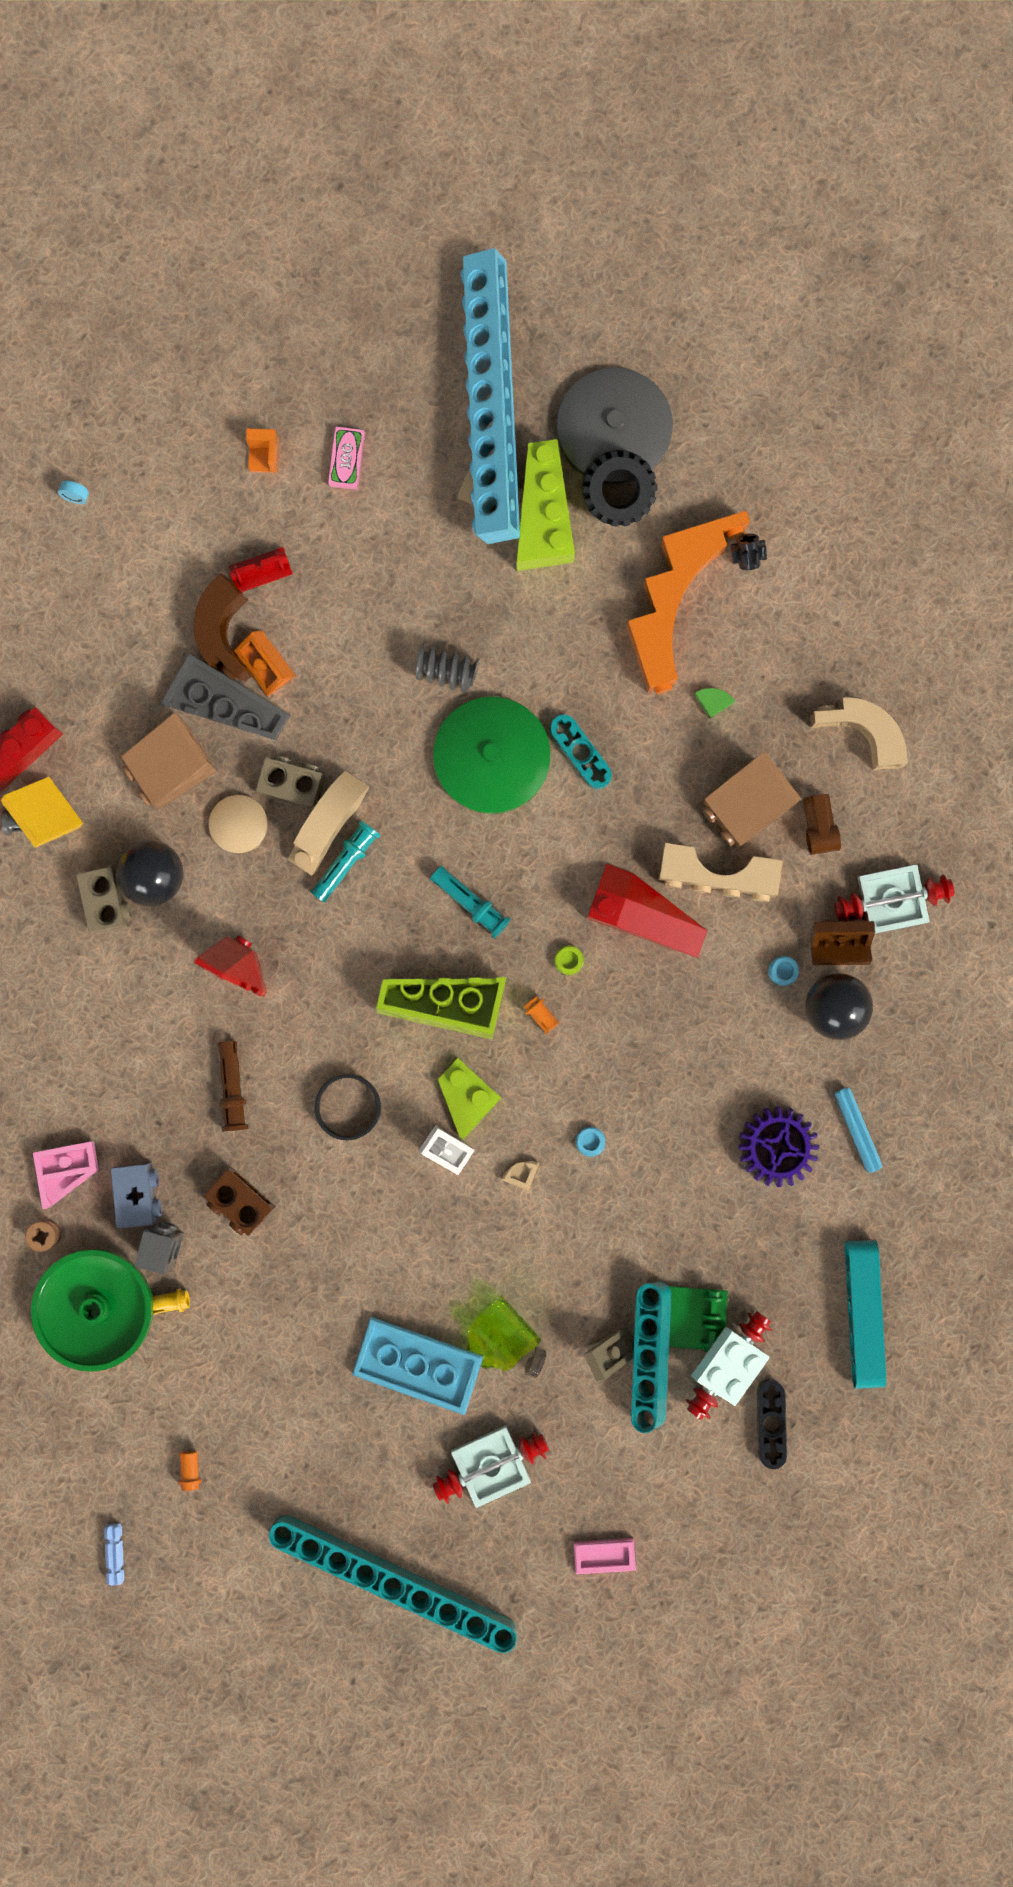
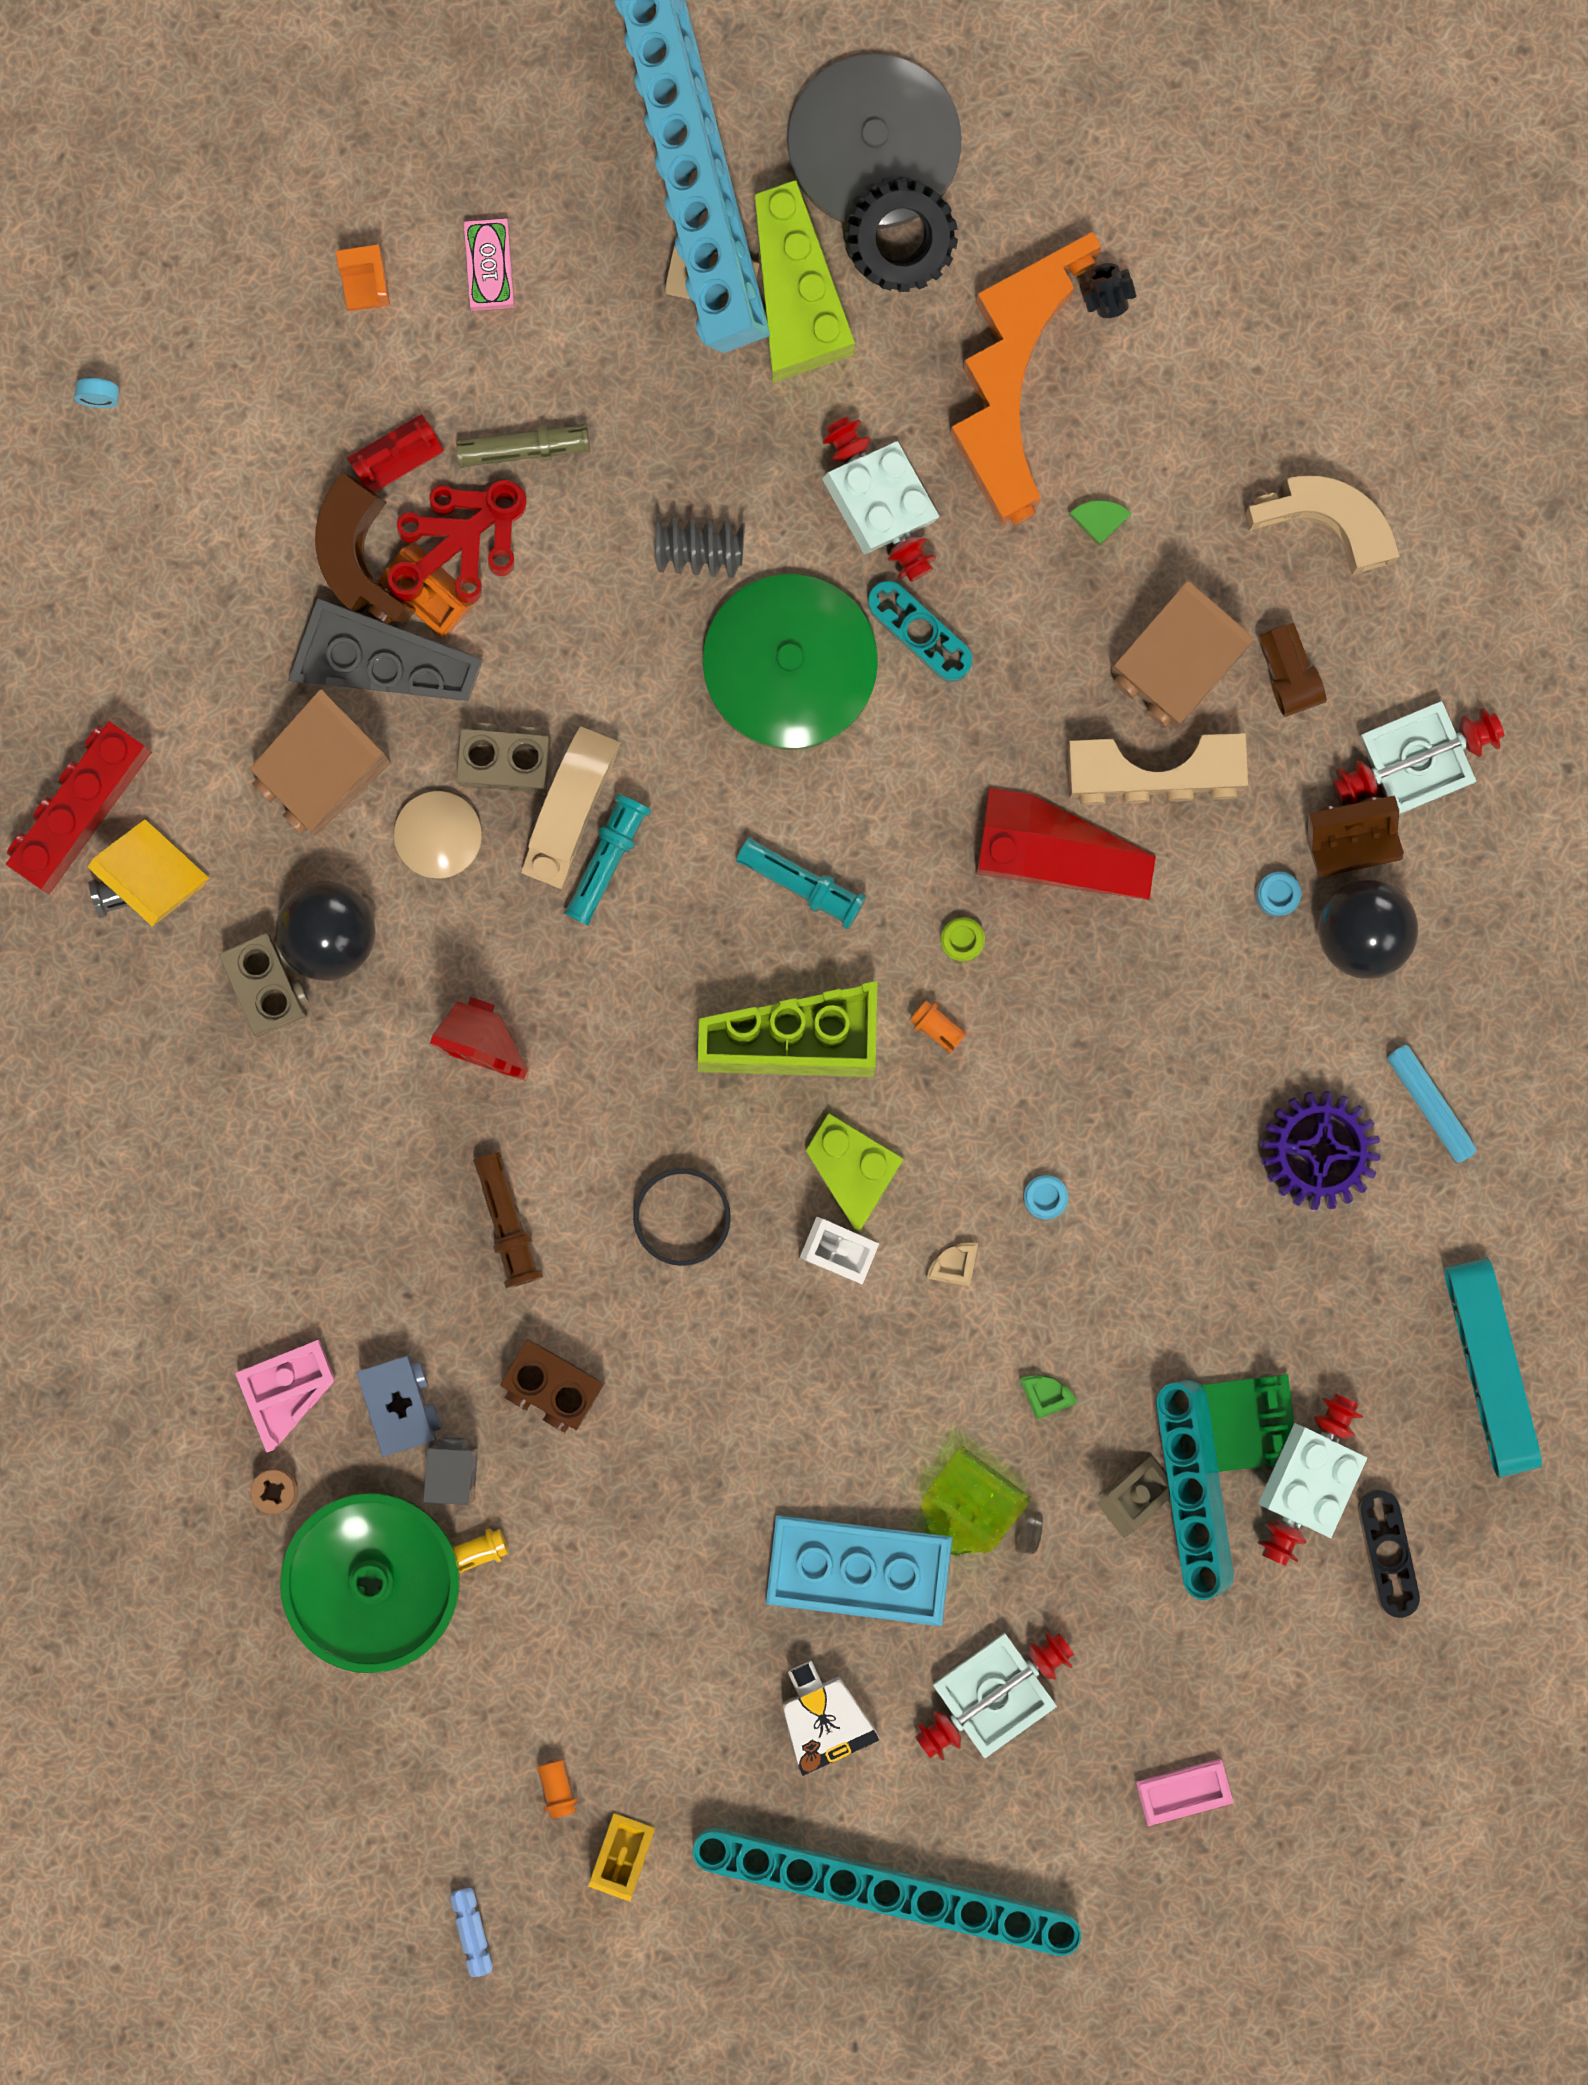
camera: 20 degrees left, 0 degrees up
(221, 1526) = (621, 1857): none -> yellow slope
(291, 631) = (460, 535): none -> red plant
(334, 579) = (531, 444): none -> olive pin
(375, 1461) = (824, 1720): none -> white torso
(565, 1272) = (1046, 1395): none -> bright green tile
(571, 659) = (880, 498): none -> light aqua plate

